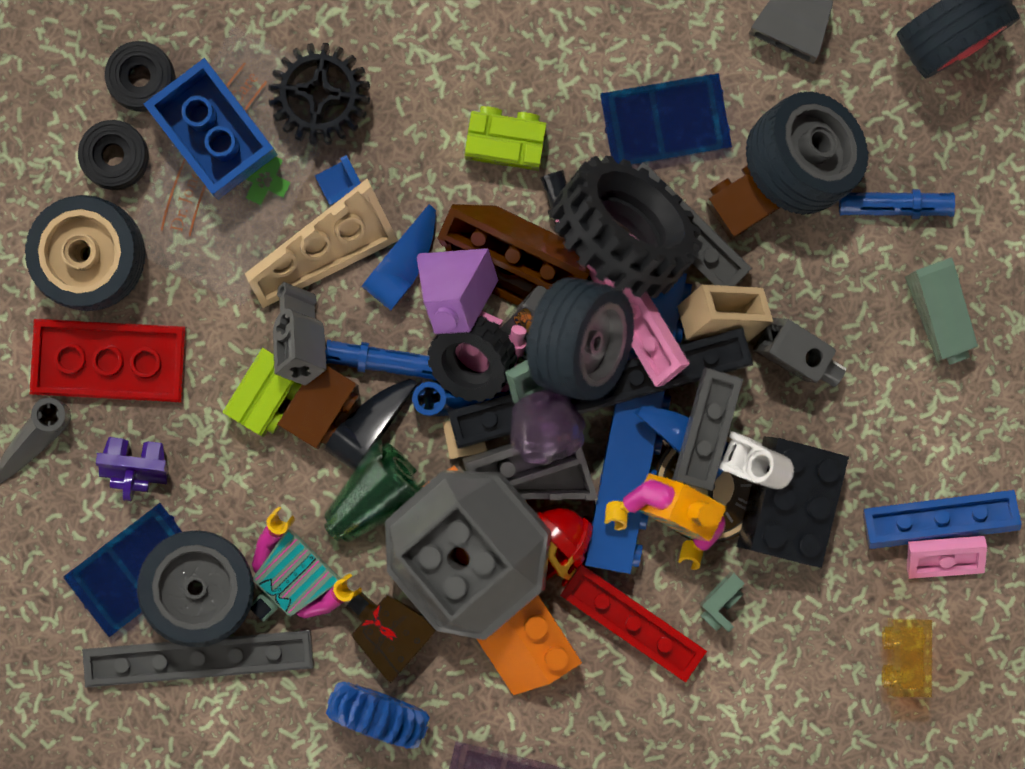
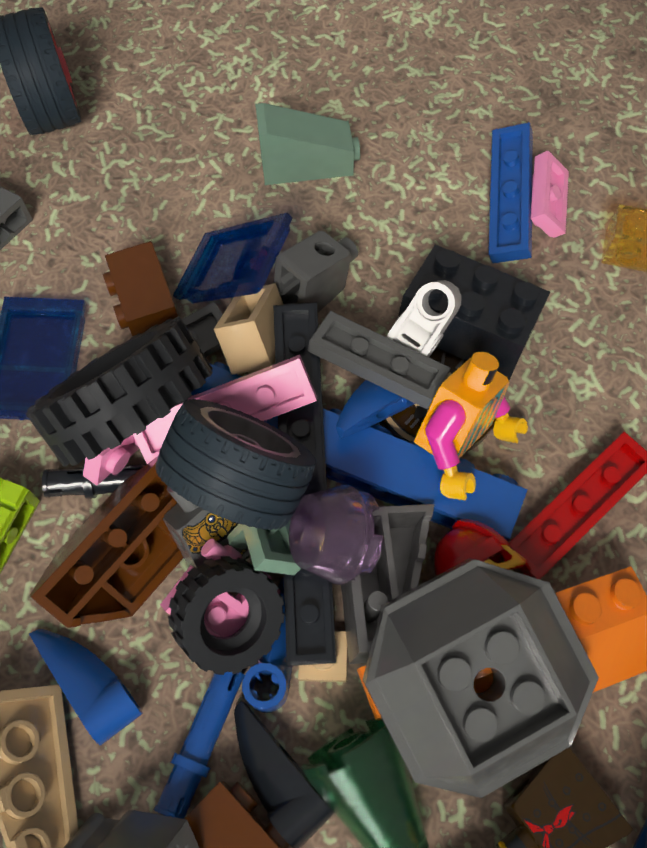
camera: 75 degrees left, 20 degrees down
(456, 287) = (133, 616): medium lavender slope -> none
(725, 595) = (563, 405): sand green bracket -> none
(792, 274) = (234, 260): none -> clear blue piece
(807, 153) = (109, 218): black wheel -> none
(904, 204) = (196, 159): blue pin -> none

